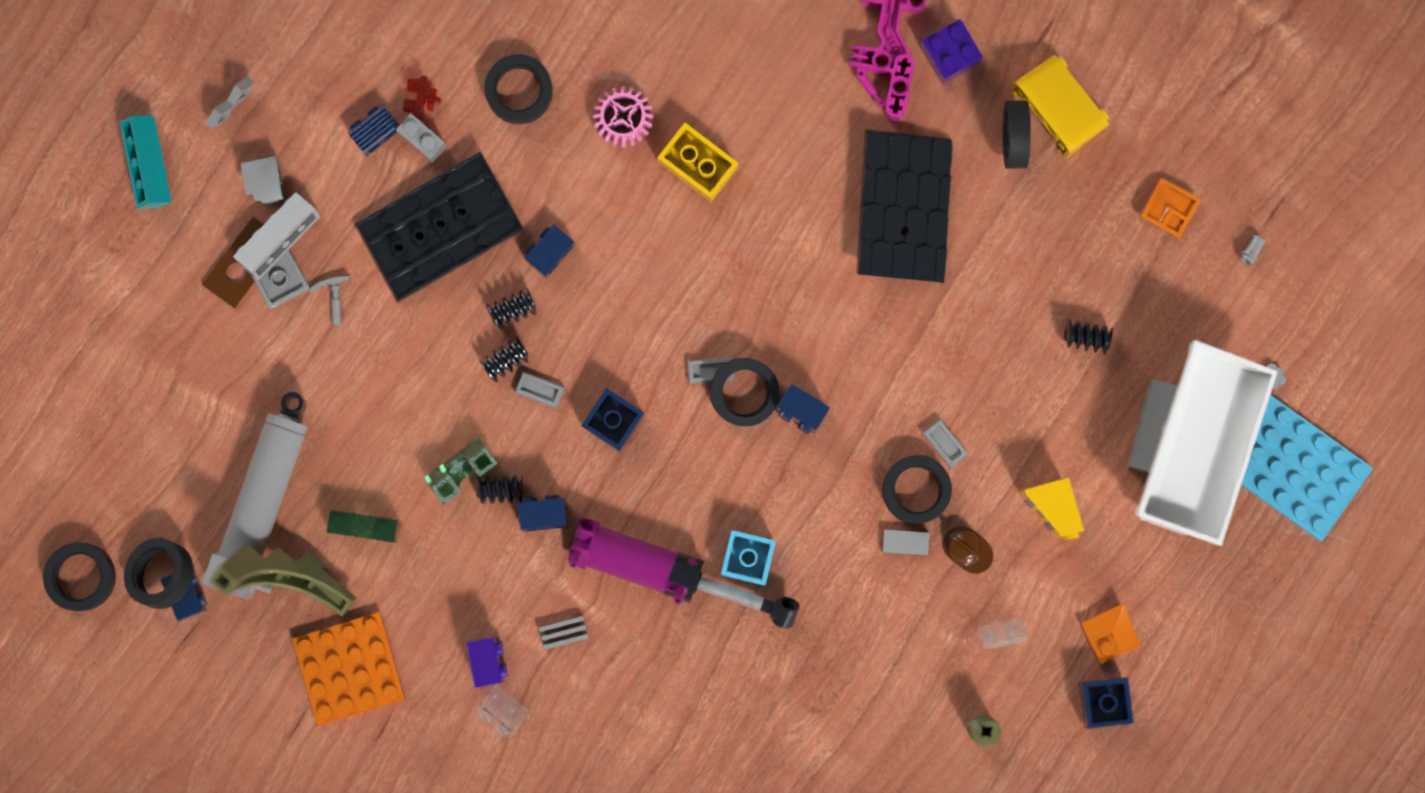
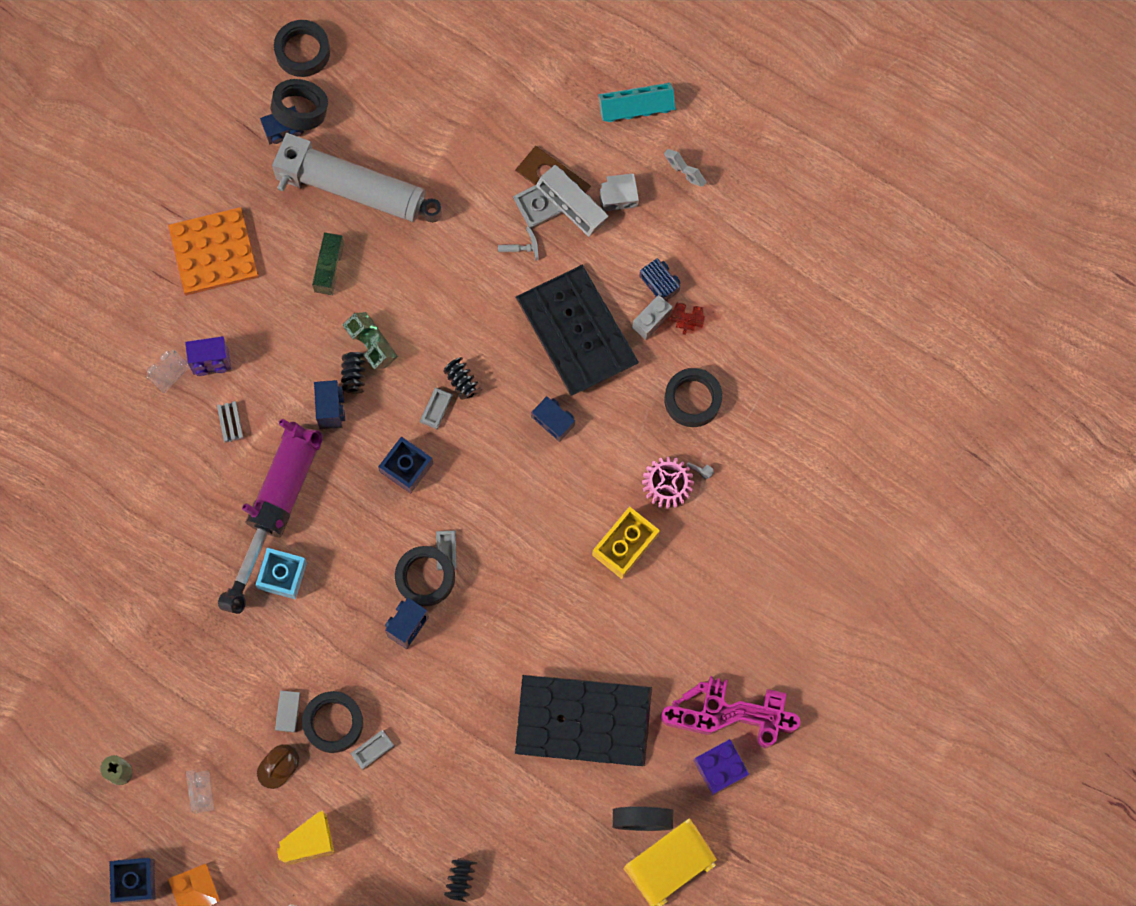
camera: 90 degrees right, 10 degrees down
(278, 569) = (294, 192): olive arch -> none
(512, 309) = (503, 386): black piece -> none
(608, 73) = (706, 472): none -> light grey hand

